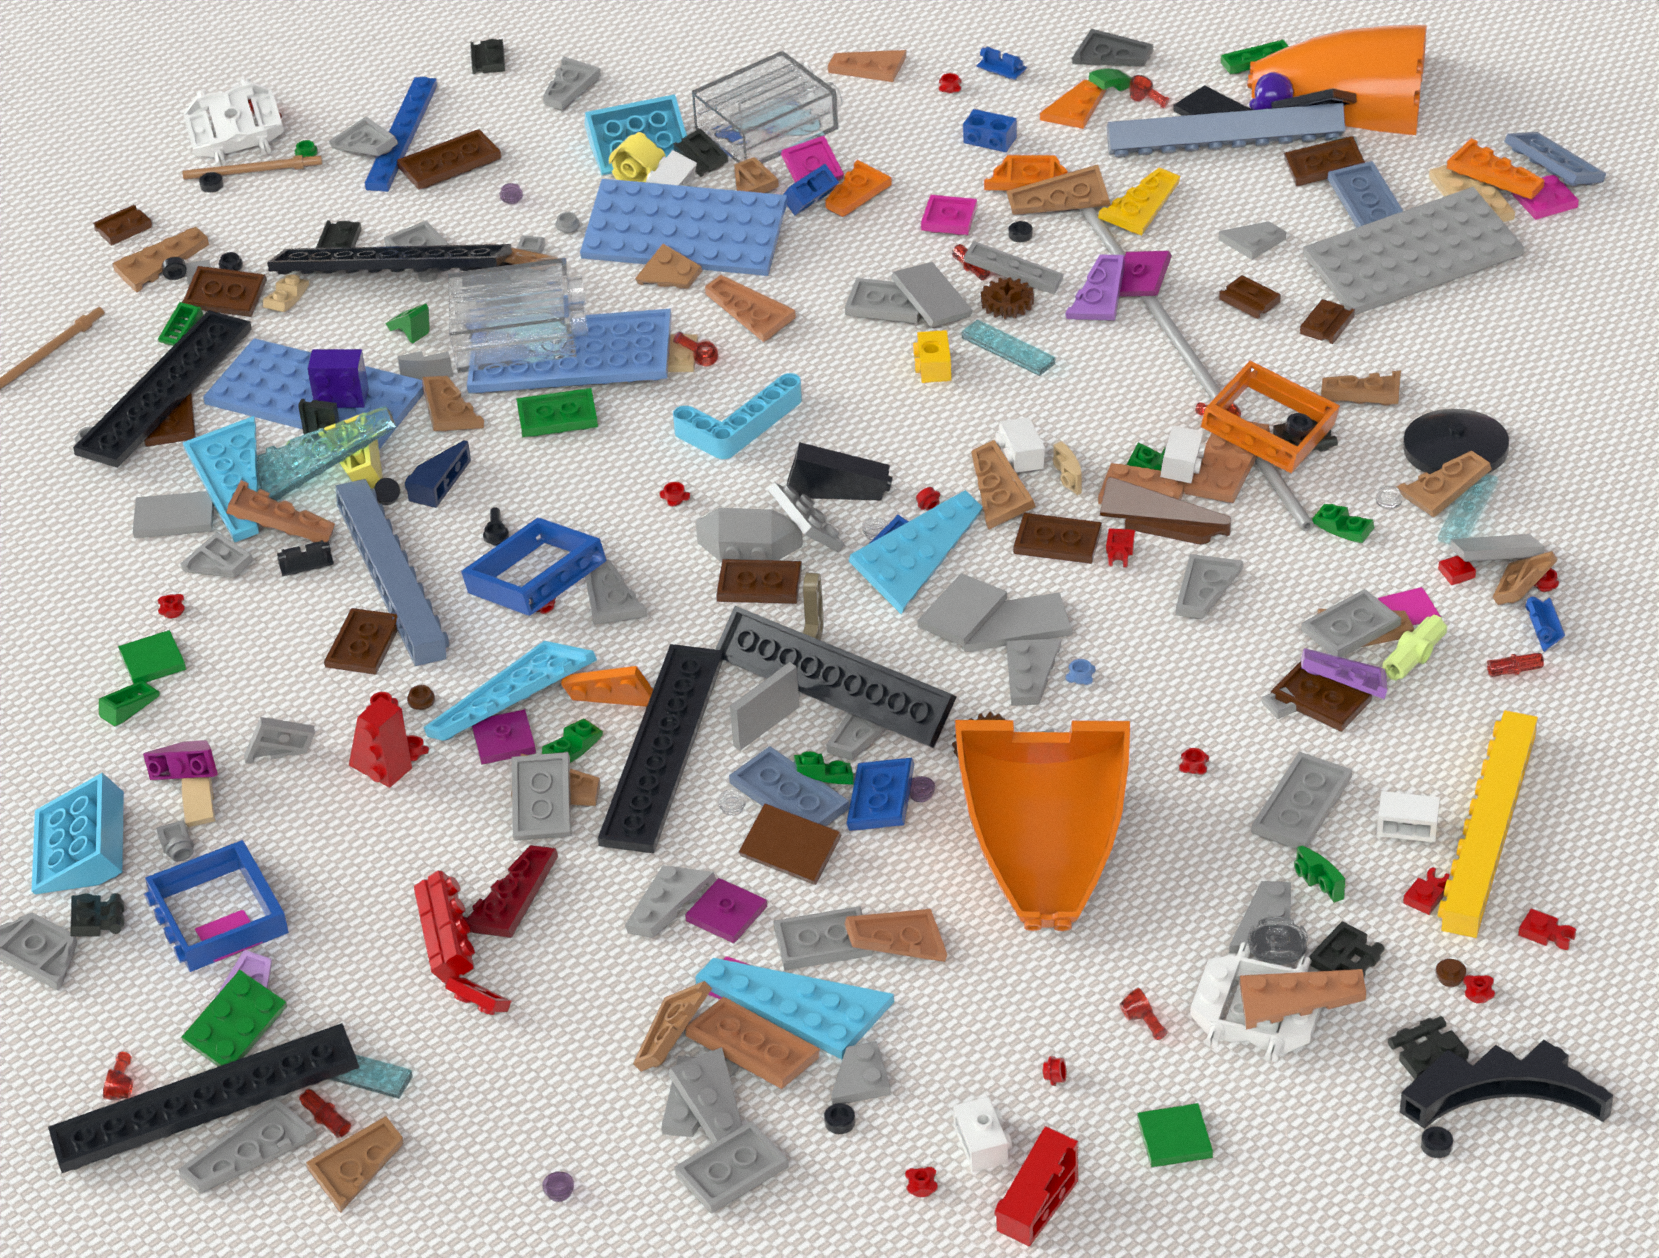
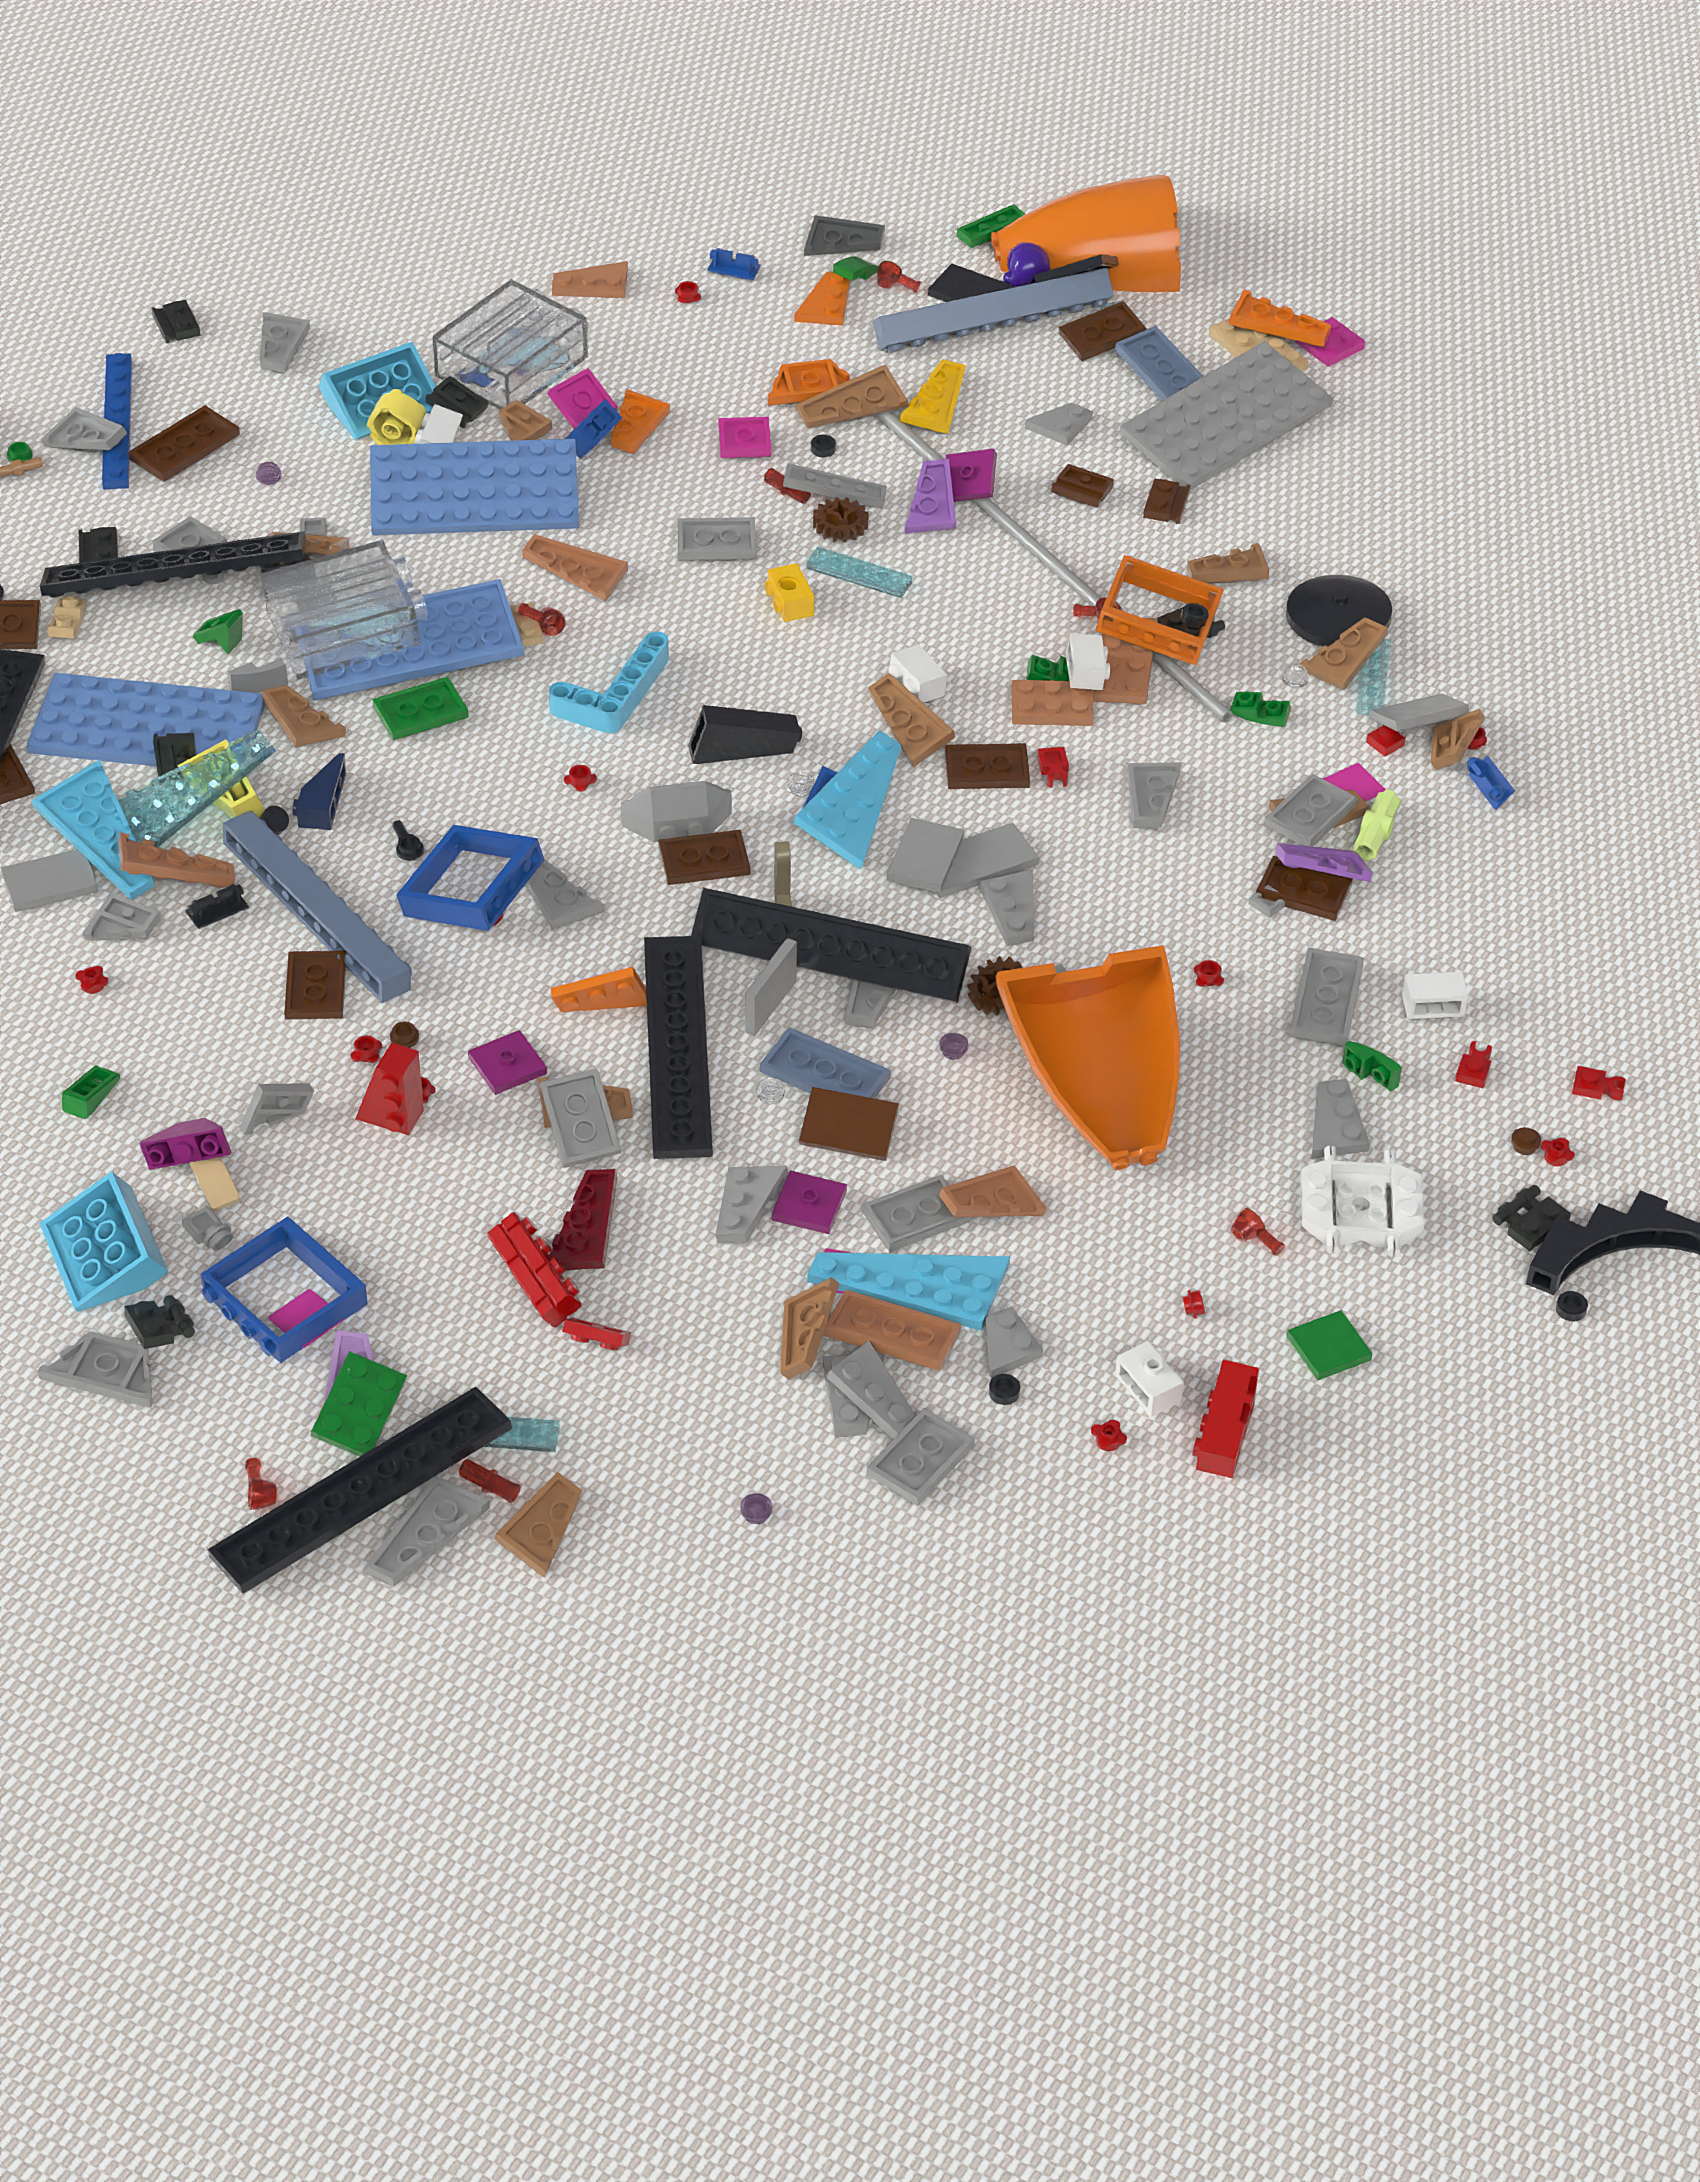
camera: 20 degrees left, 5 degrees up
(152, 657) = (94, 1039): green tile -> none
(338, 377) = (180, 703): dark purple brick -> none
(517, 682) = (506, 998): medium azure wing -> none
(567, 222) = (343, 497): light grey plate -> none
(576, 739) = (584, 1054): green slope -> none
(669, 269) = (476, 535): medium nougat wing -> none
(806, 517) = (733, 782): light grey plate -> none
(814, 767) = (845, 1041): green slope -> none
(880, 794) = (917, 1058): blue tile -> none
(928, 498) = (843, 744): red plate -> none
(931, 294) = (763, 526): light grey tile -> none
(989, 130) = (751, 339): blue brick -> none
(1067, 463) = (970, 686): tan slope -> none
(1080, 672) = (1064, 901): medium blue plate -> none
(1161, 514) = (1084, 726): wedge -> none
(1277, 940) = (1360, 1138): clear tile -> none
(1285, 994) = (1392, 1189): nougat wing -> none
(1341, 946) = (1415, 1136): pearl dark grey plate -> none
(1489, 824) = (1509, 990): yellow brick -> none
(1514, 664) = (1475, 827): clear red axle -> none
(1555, 158) = (1328, 299): sand blue plate -> none

